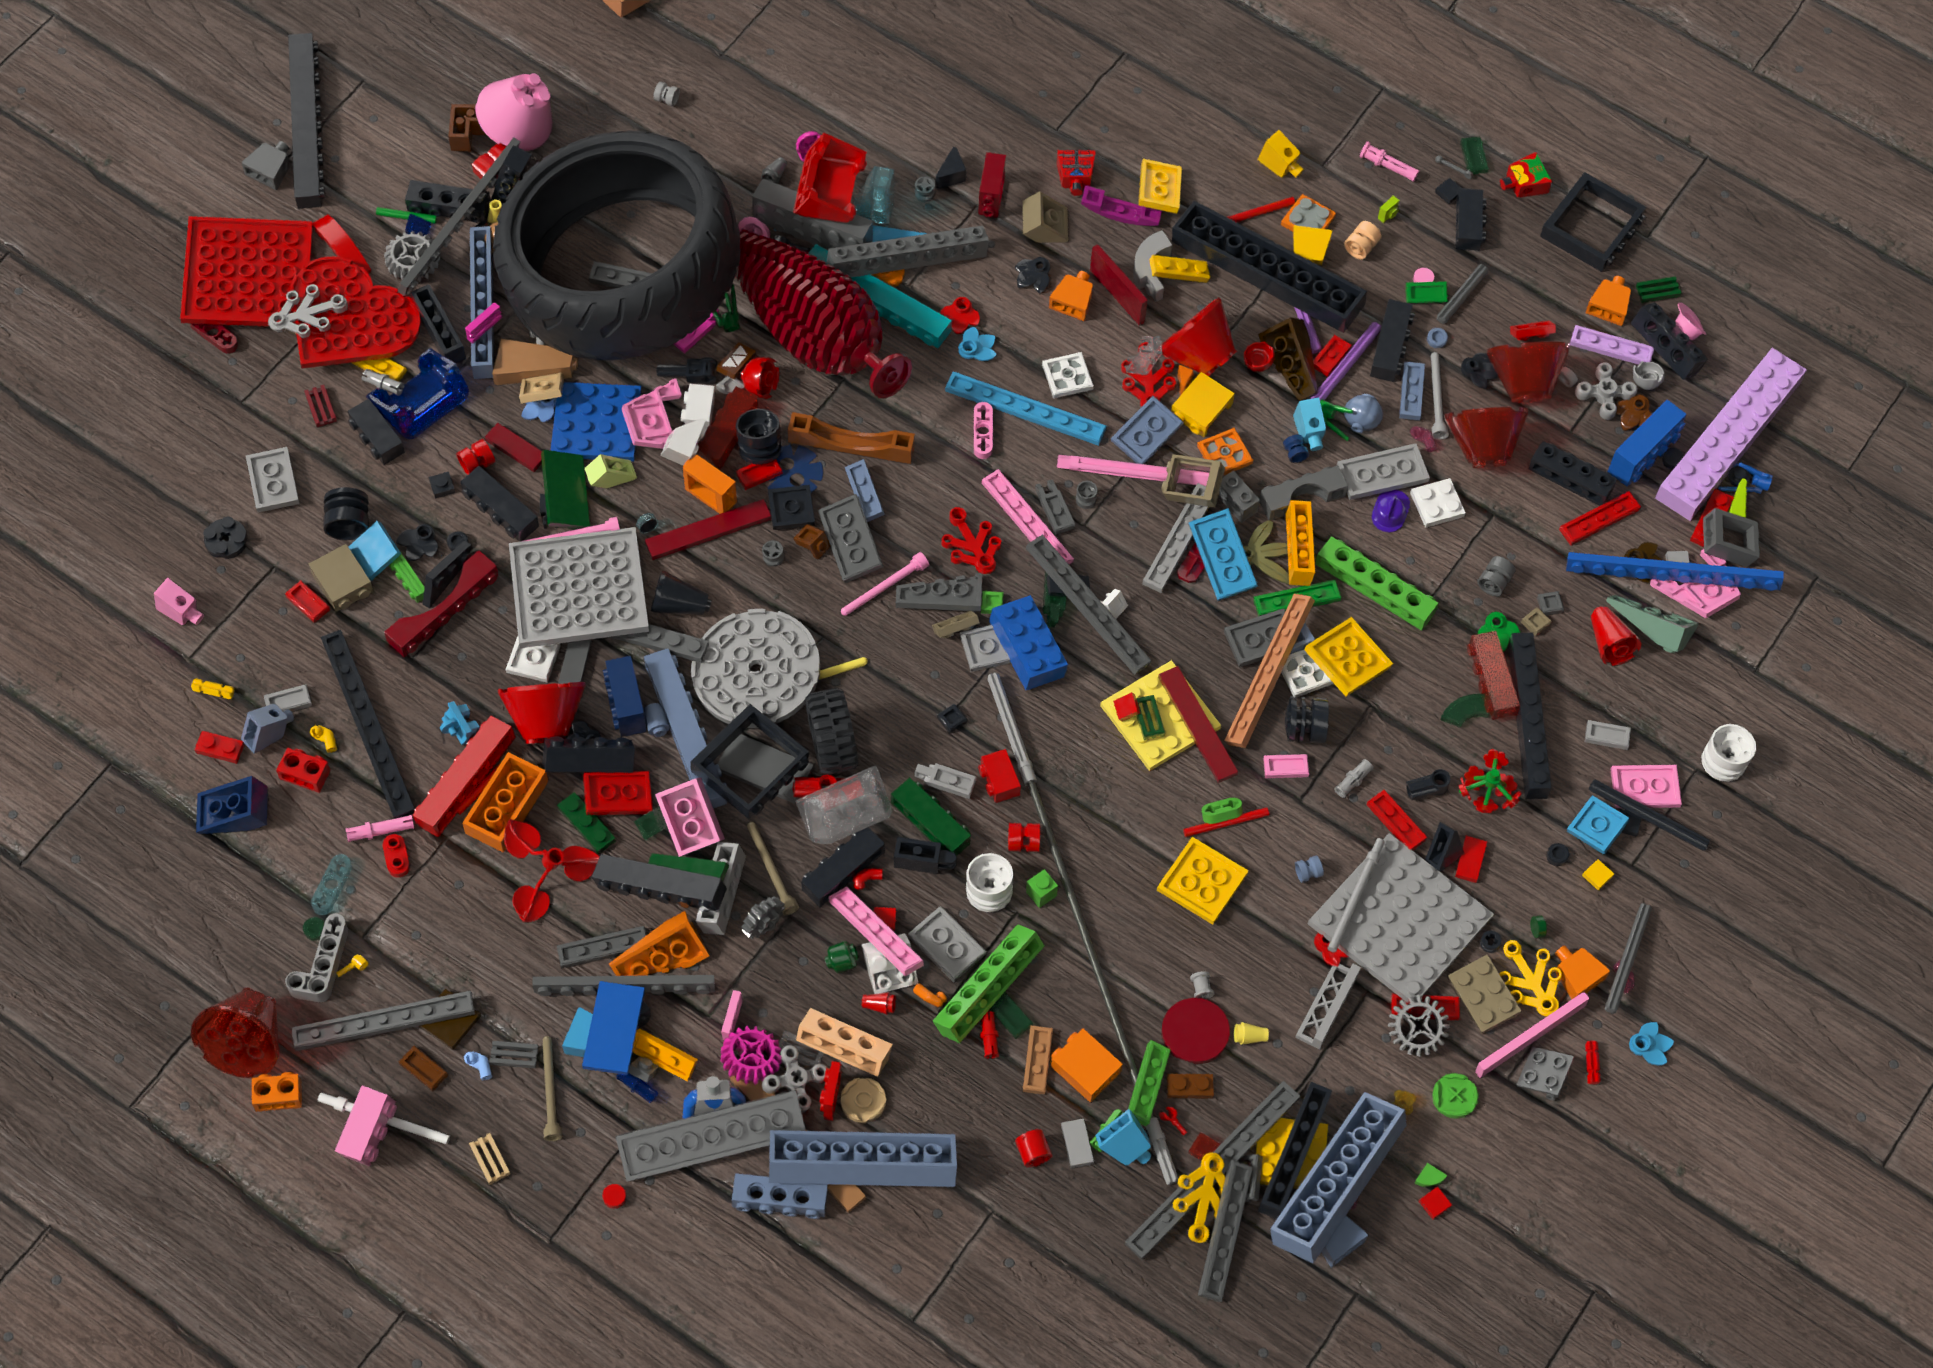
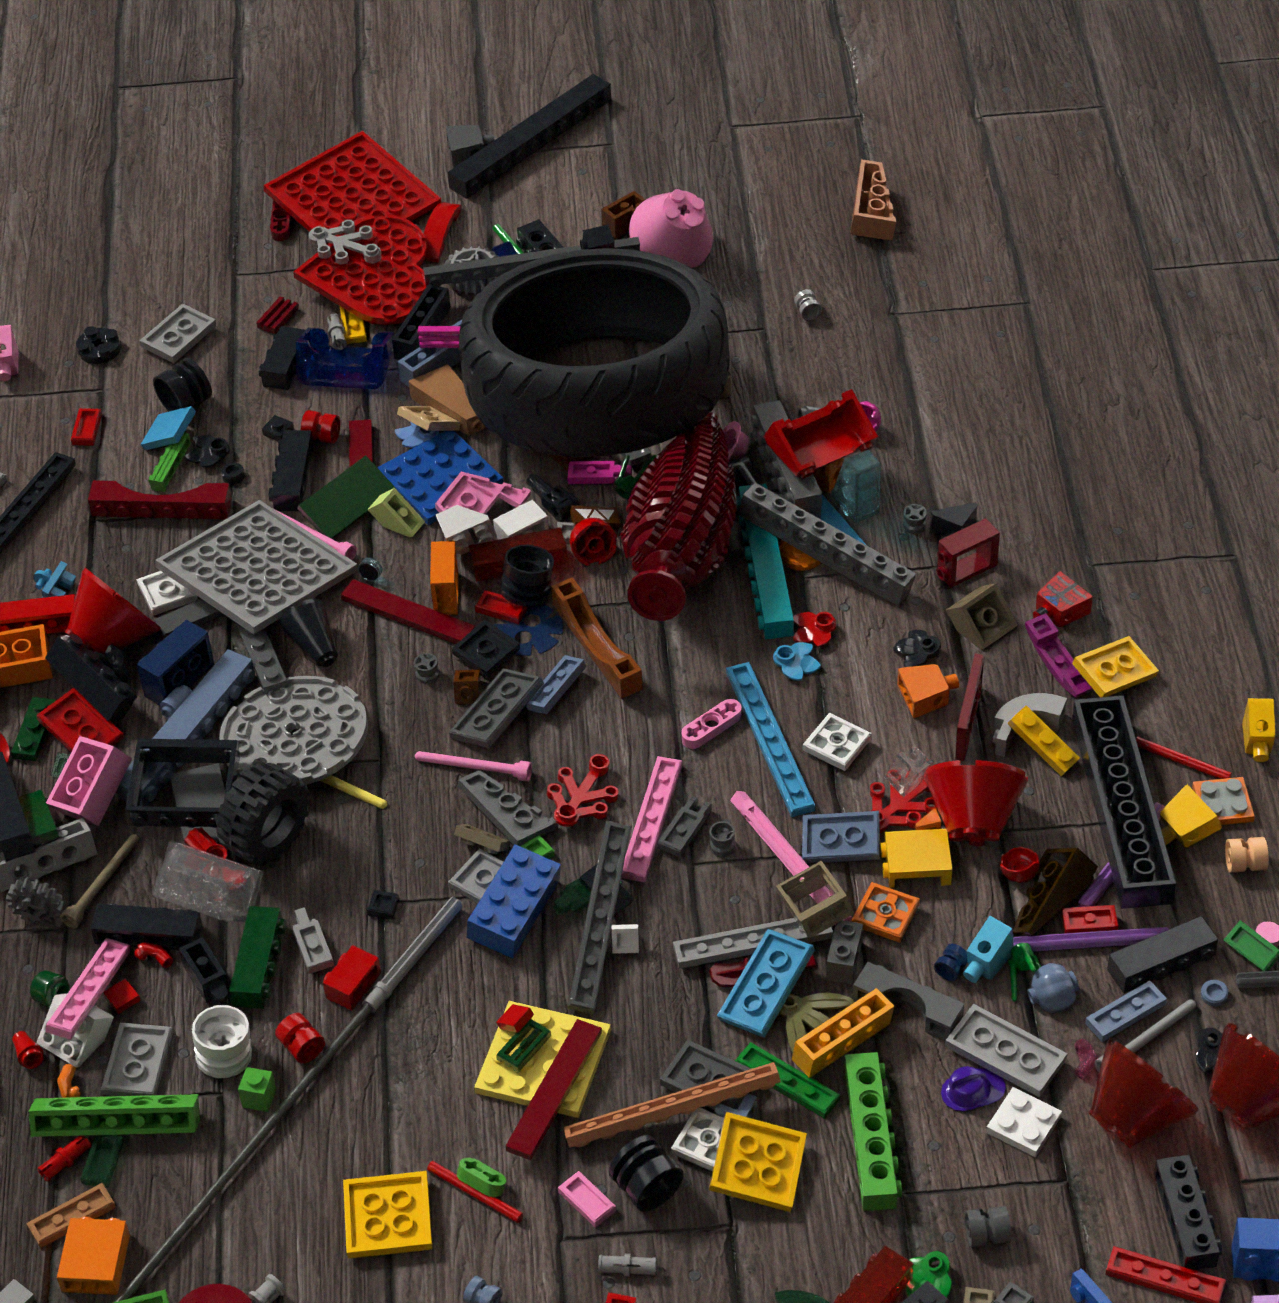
camera: 55 degrees right, 15 degrees down
(341, 578) = (123, 427): dark tan brick -> none
(444, 573) = (183, 477): black wing -> none

